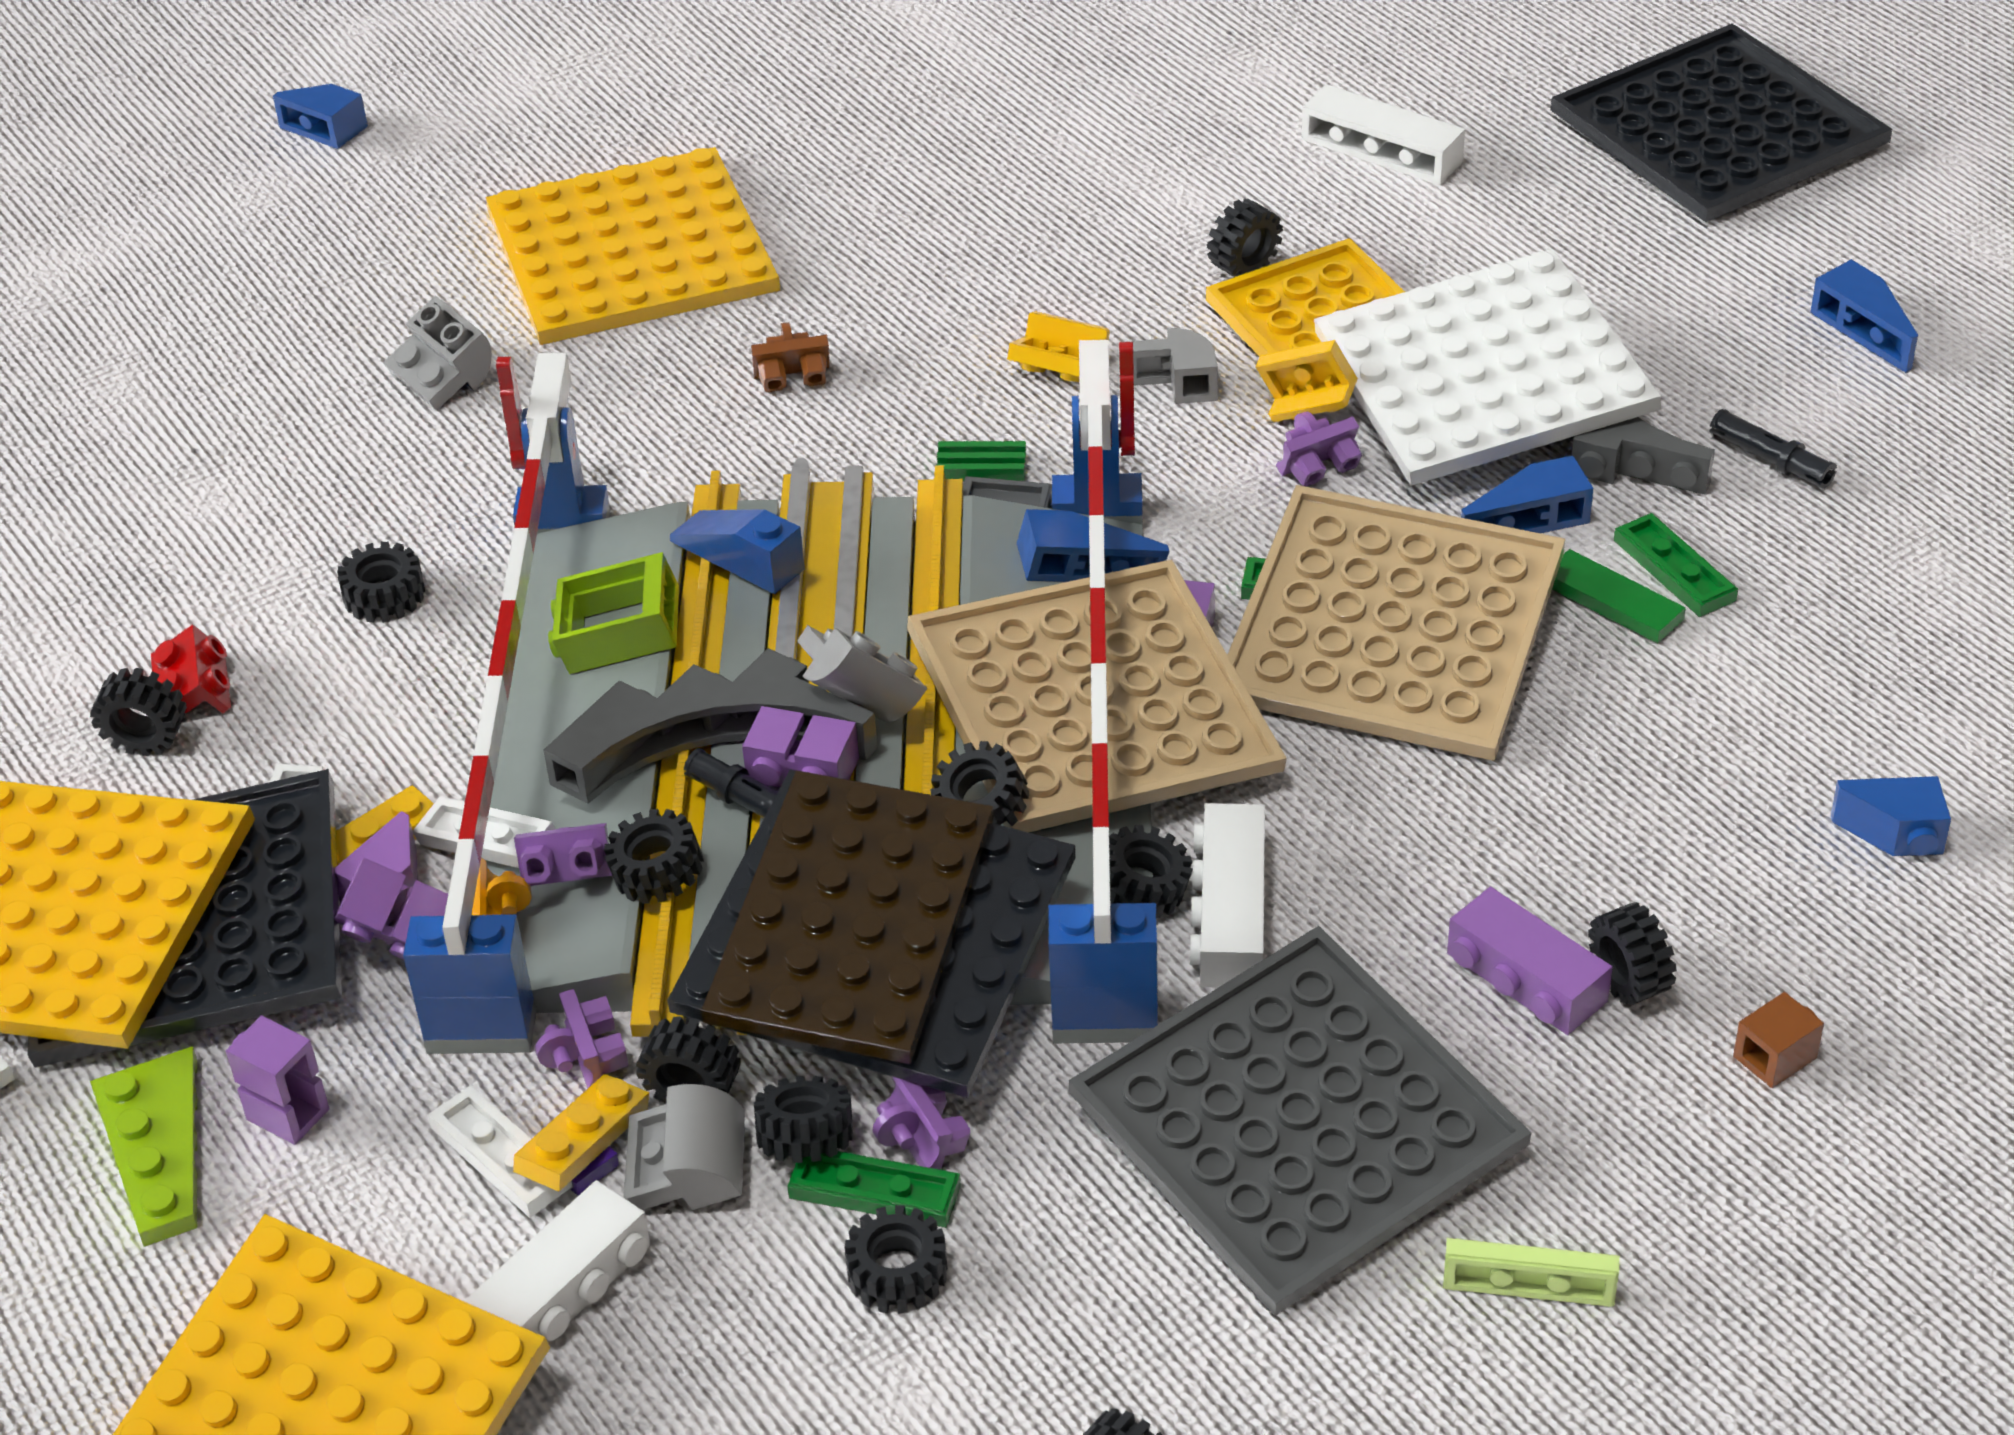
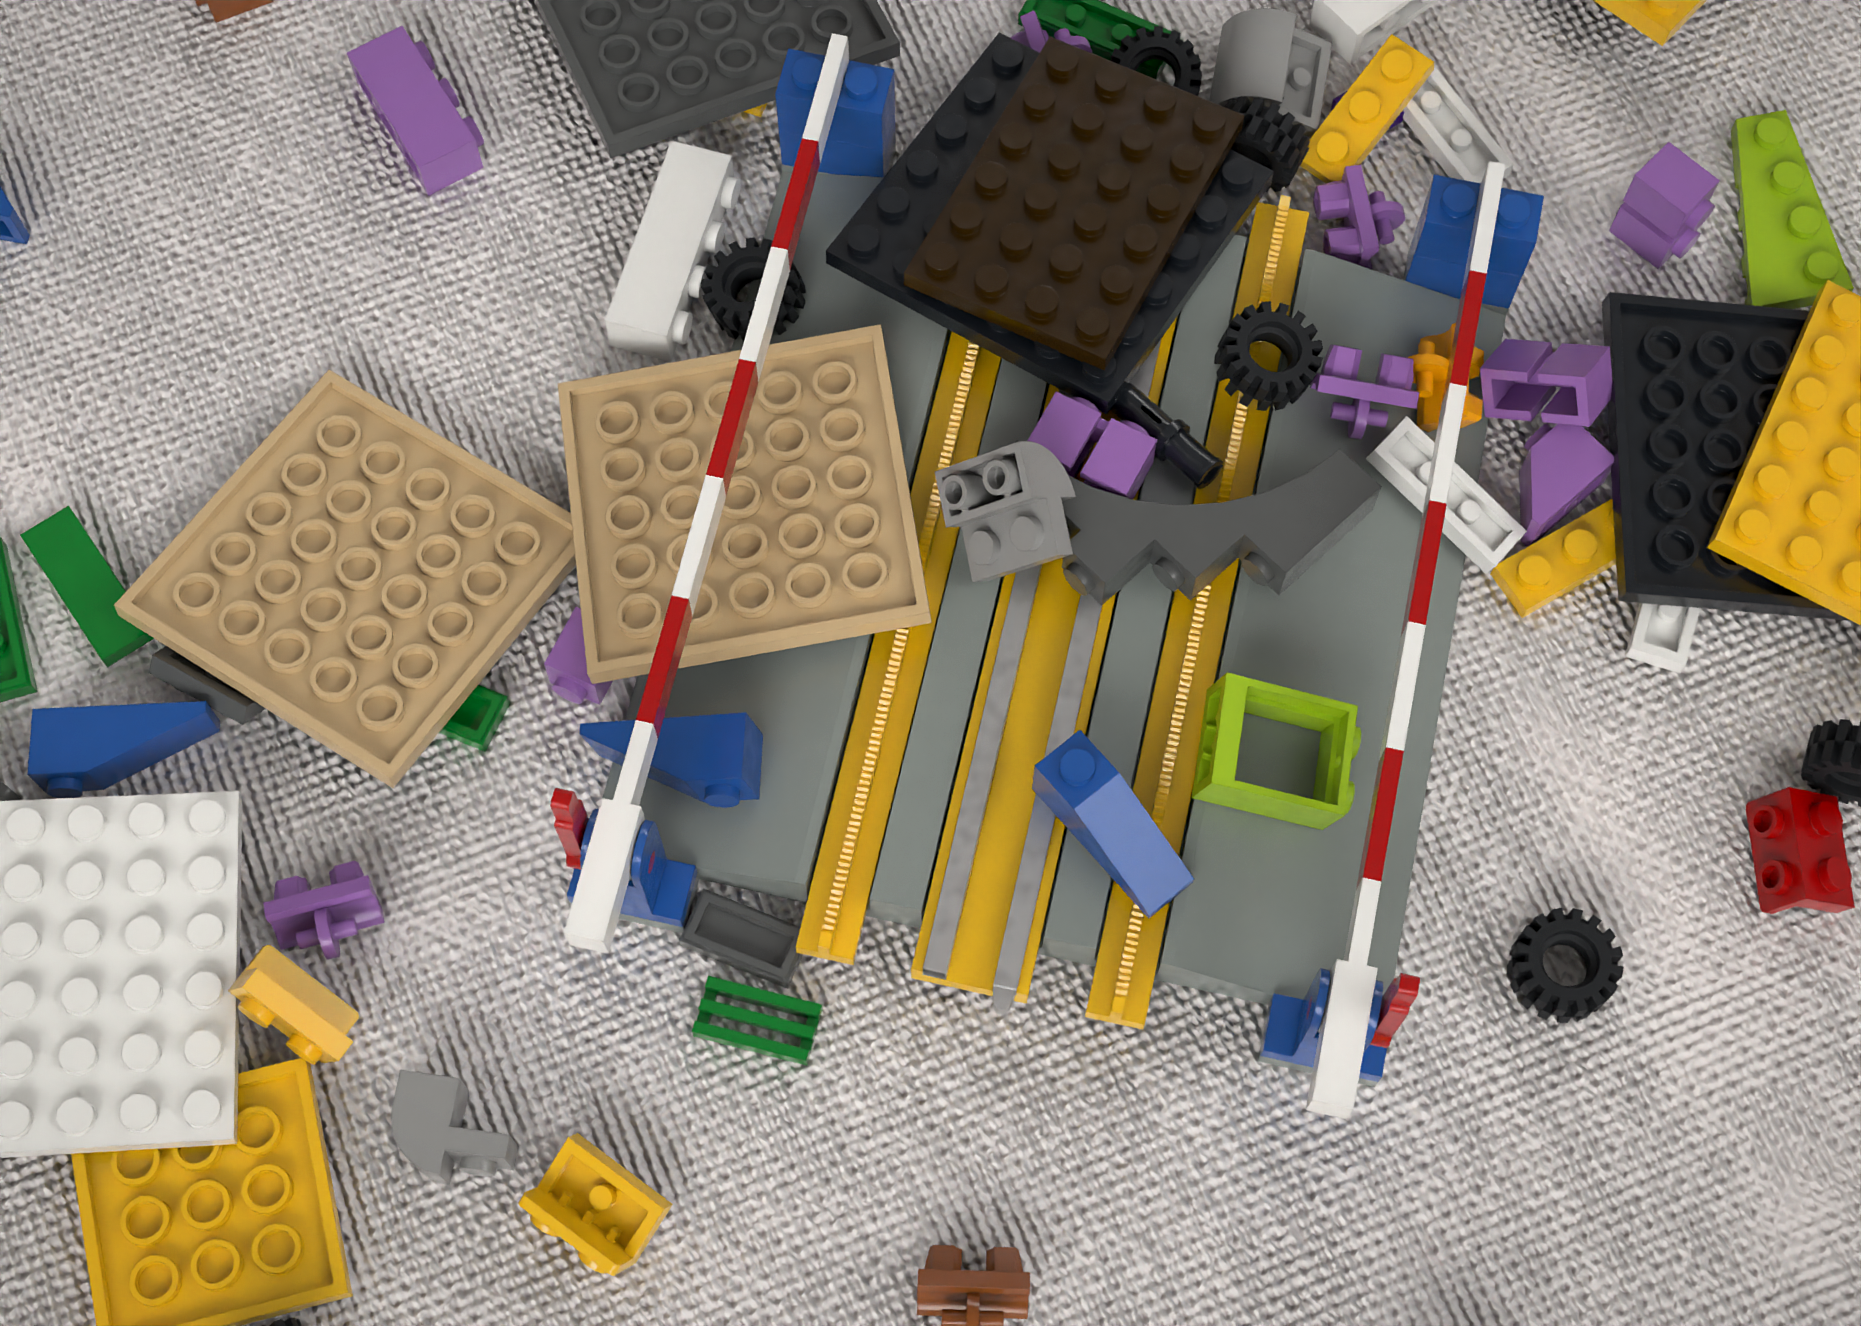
camera: 170 degrees left, 25 degrees up
(982, 765) = (891, 367): black tyre -> none
(1636, 950) = (319, 70): black tyre -> none

